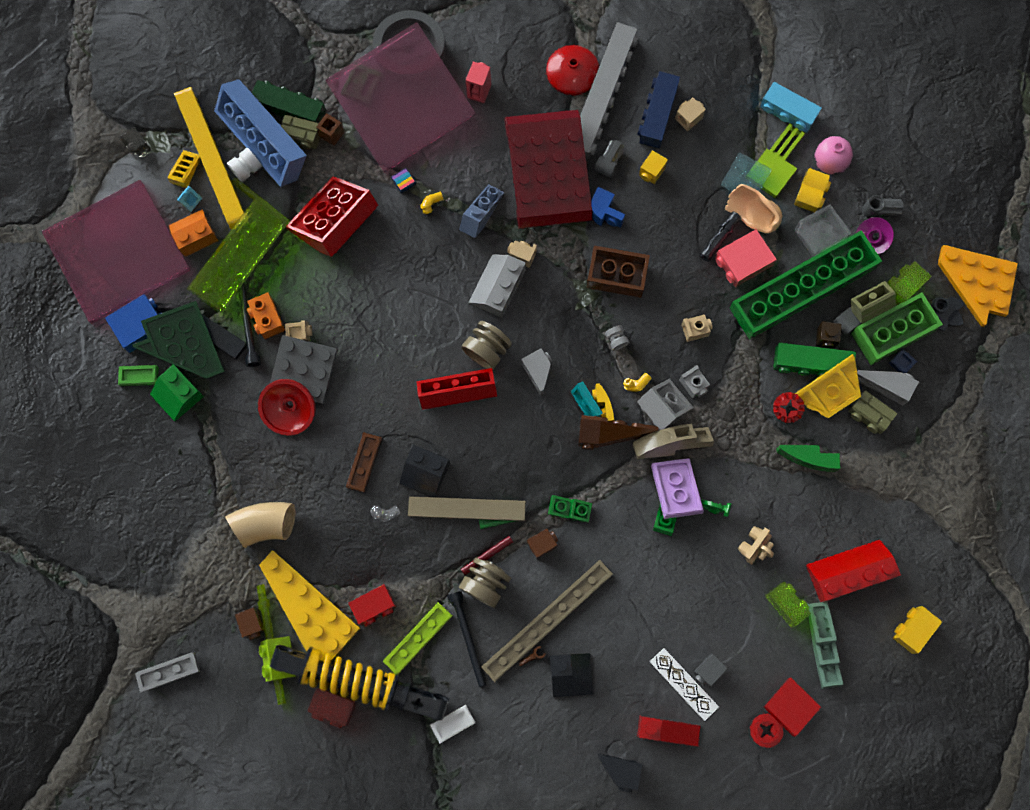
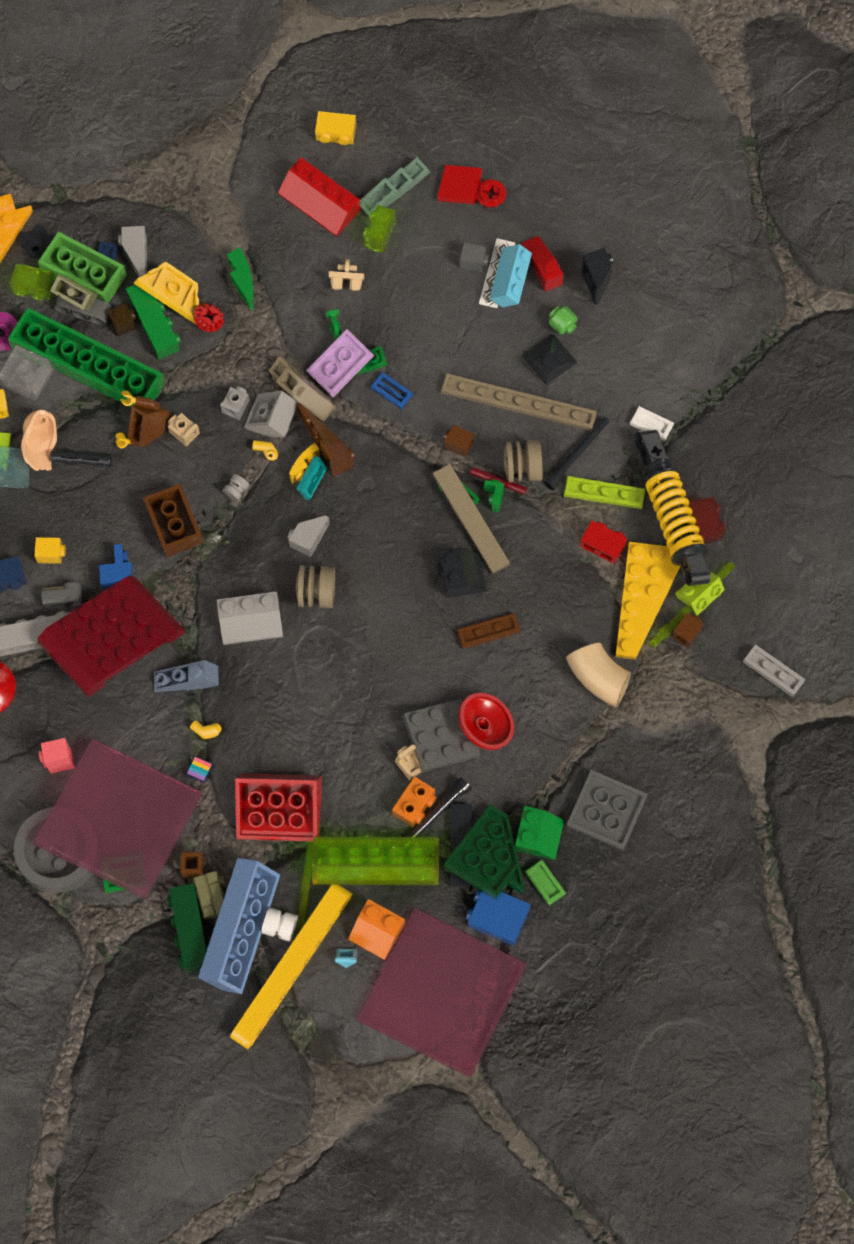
camera: 125 degrees left, 5 degrees down
(155, 457) = (607, 810): none -> dark grey plate
(176, 170) = (316, 977): yellow slope -> none
(384, 515) = (522, 582): clear arm -> none
(456, 388) = (372, 589): red brick -> none
(471, 541) = (496, 495): none -> green bracket
(522, 251) = (205, 615): tan brick -> none
(531, 657) = (553, 394): reddish brown hand -> none
(569, 508) = (414, 439): green slope -> none
(597, 709) = (563, 320): none -> bright green head
(610, 524) = (388, 397): none -> blue tile
(669, 690) = (510, 275): none -> medium azure brick
(719, 297) = (146, 421): none -> reddish brown torso
(745, 258) = (90, 425): coral brick -> none
(872, 413) = (171, 248): olive brick -> none

